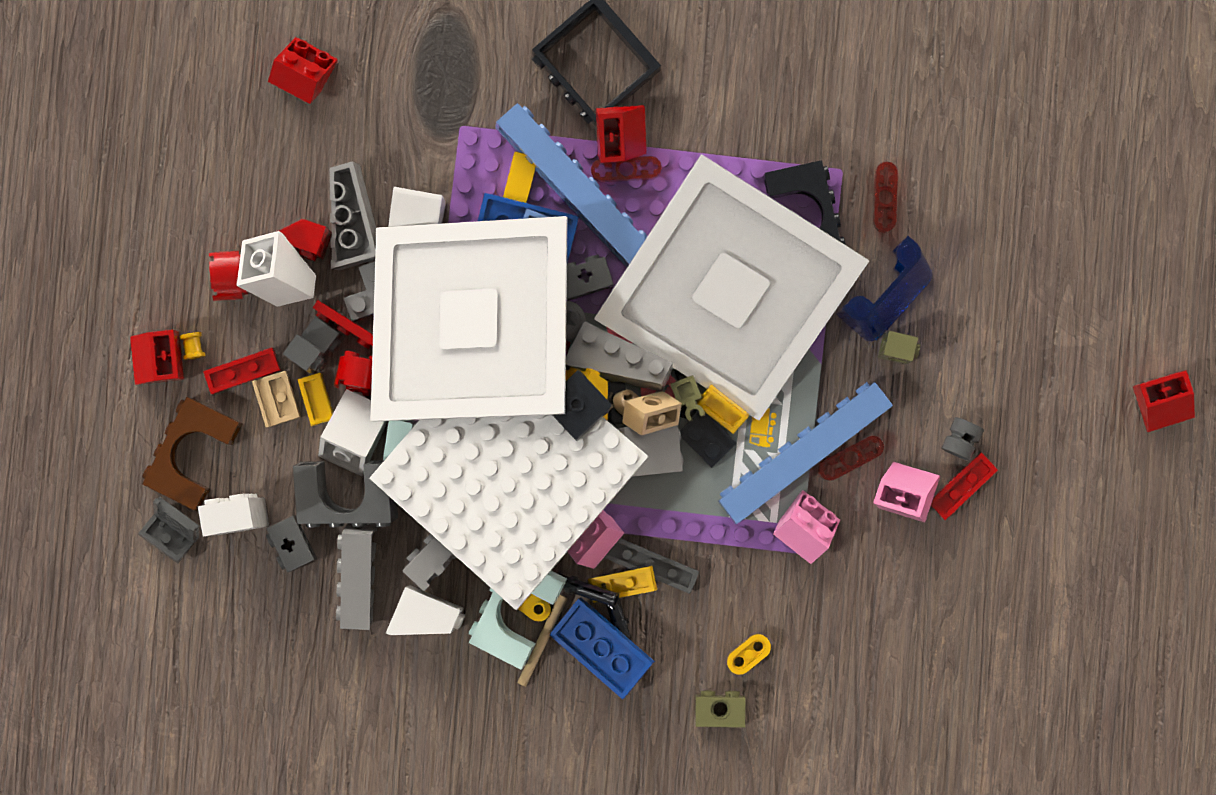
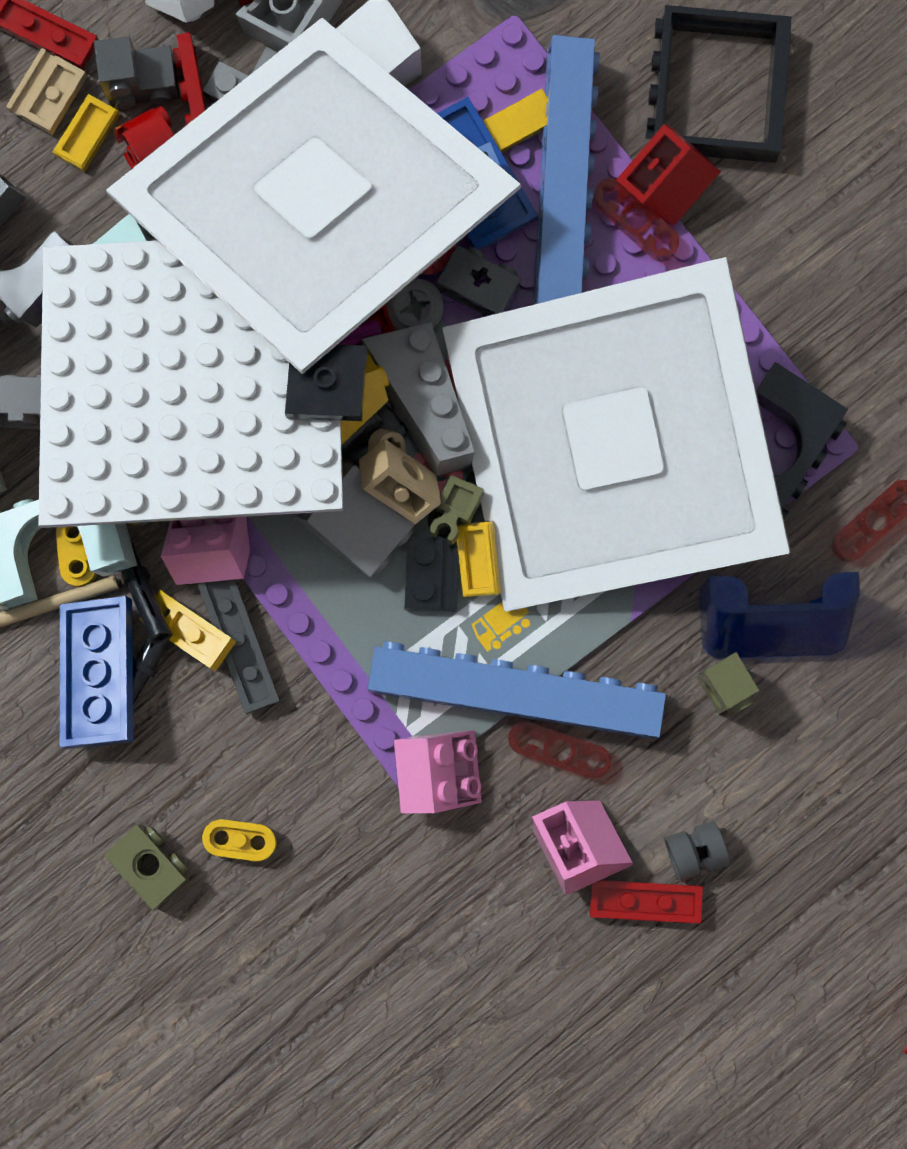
camera: 45 degrees right, 5 degrees down
(351, 434) = (73, 197): white slope -> none

